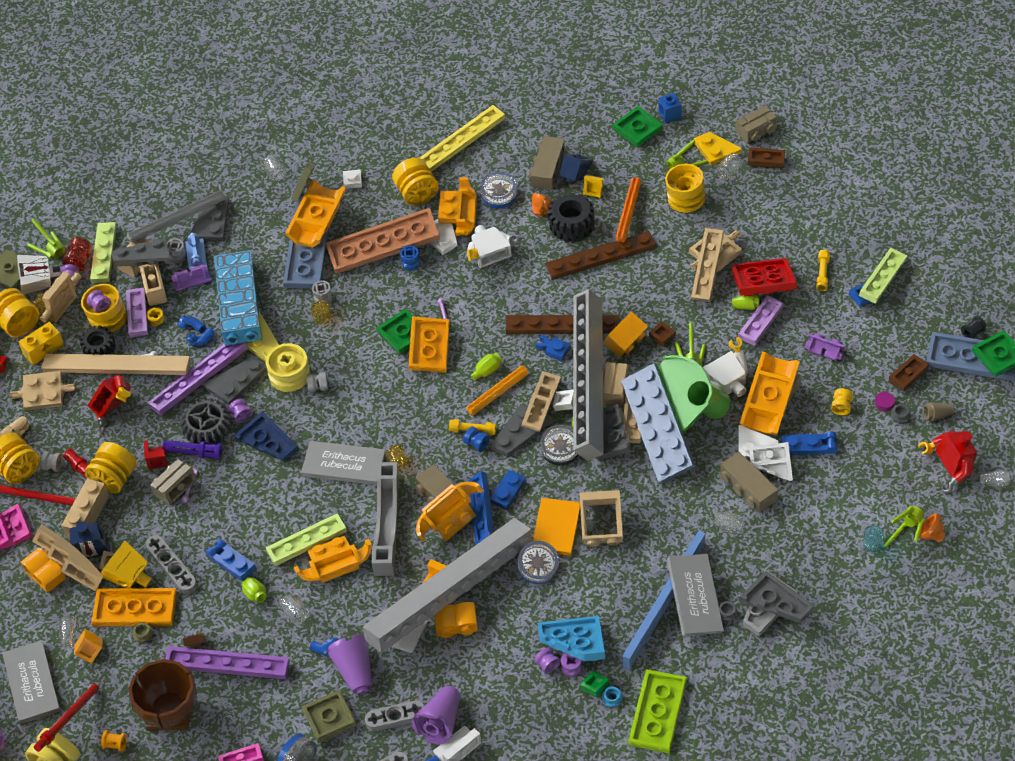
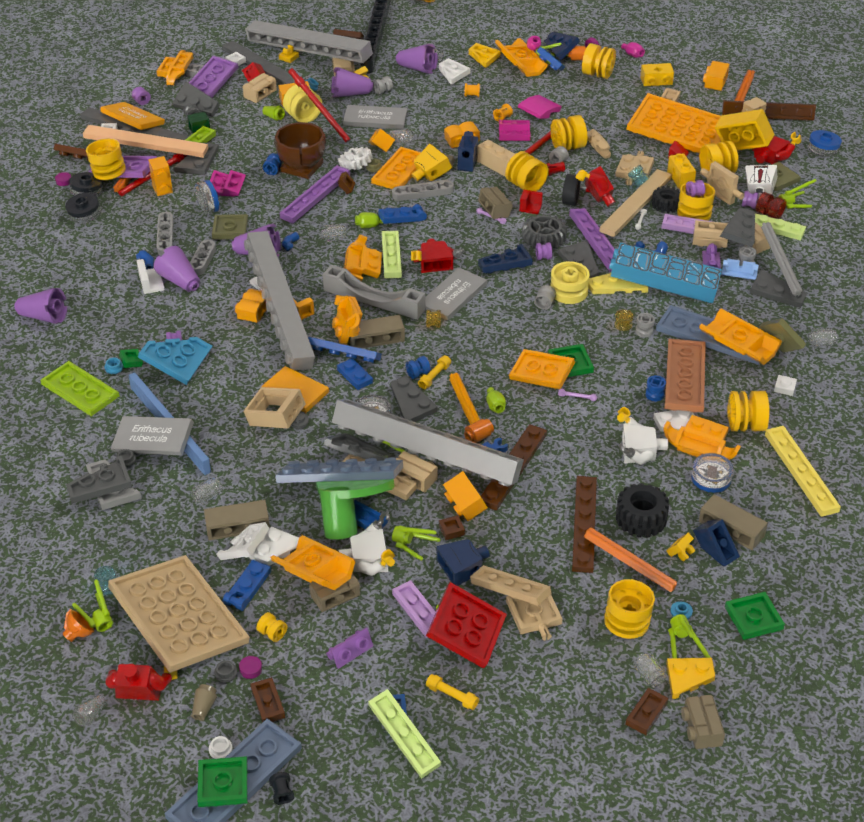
camera: 110 degrees right, 10 degrees down
(64, 374) = (638, 175): none -> clear light blue wheel
(71, 559) = (452, 139): tan slope -> none
(125, 410) = (571, 190): none -> black tyre
(149, 644) = (355, 158): none -> white gear
(155, 321) = (678, 235): yellow bush -> none
(192, 734) = (272, 164): none -> blue wheel
(202, 452) = (511, 230): dark purple pin -> none
(294, 495) = (435, 256): none -> red torso
(536, 359) = (479, 430): none -> orange brick
(537, 562) = (264, 360): clear piece -> none
(540, 204) = (678, 497): orange piece -> none
(541, 401) = (423, 412): tan slope -> none
(658, 168) = (677, 608): none -> dark azure plate
(670, 108) = (767, 650): blue brick -> none
(696, 309) = (460, 560): none -> dark blue torso
(872, 466) = (178, 613): none -> tan plate
(966, 382) = (220, 747): none -> white plate

